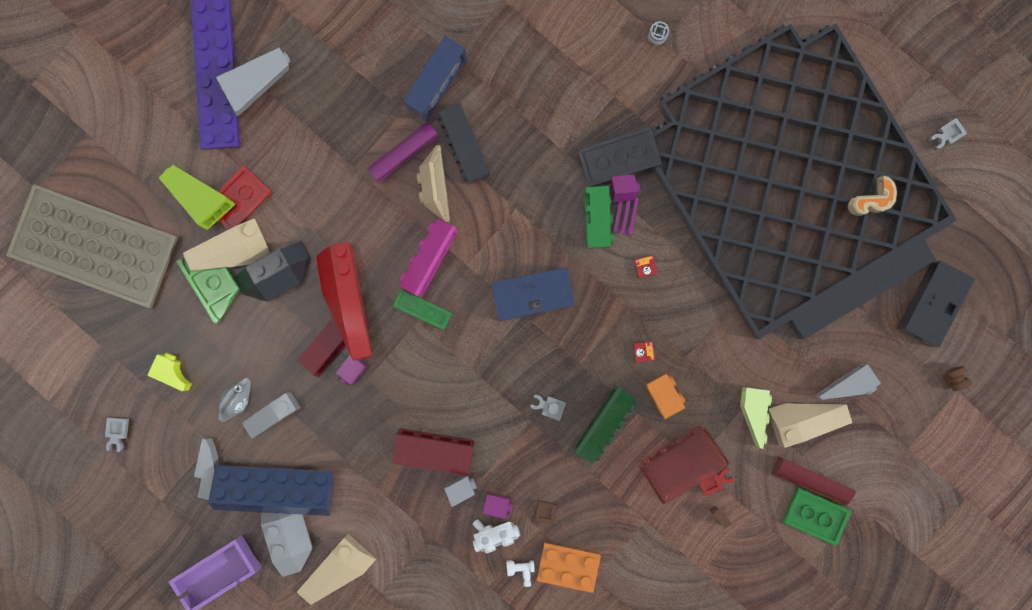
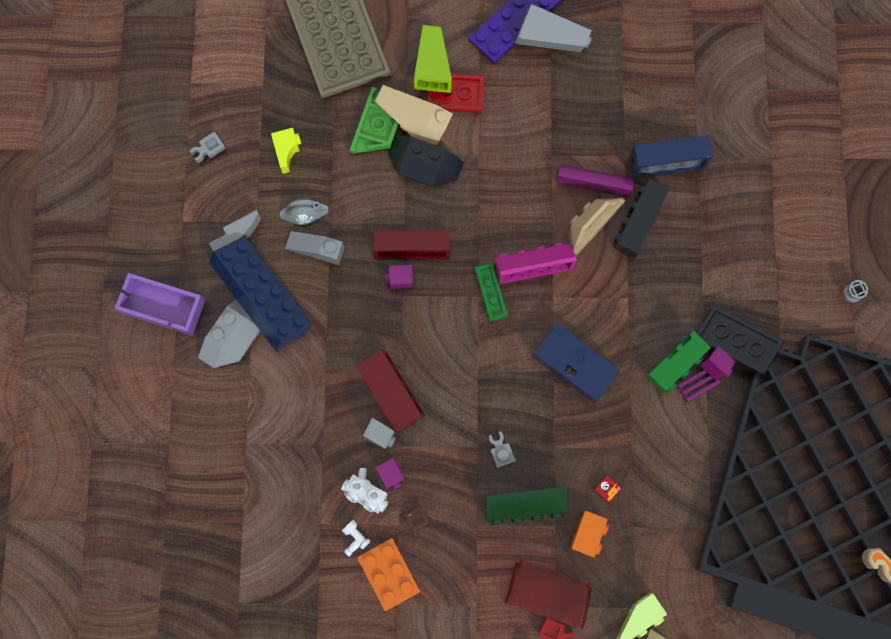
camera: 45 degrees right, 10 degrees down
(341, 566) = (237, 393): tan wedge -> none
(343, 296) = (451, 224): red wedge -> none
(645, 266) = (673, 433): red tile -> none

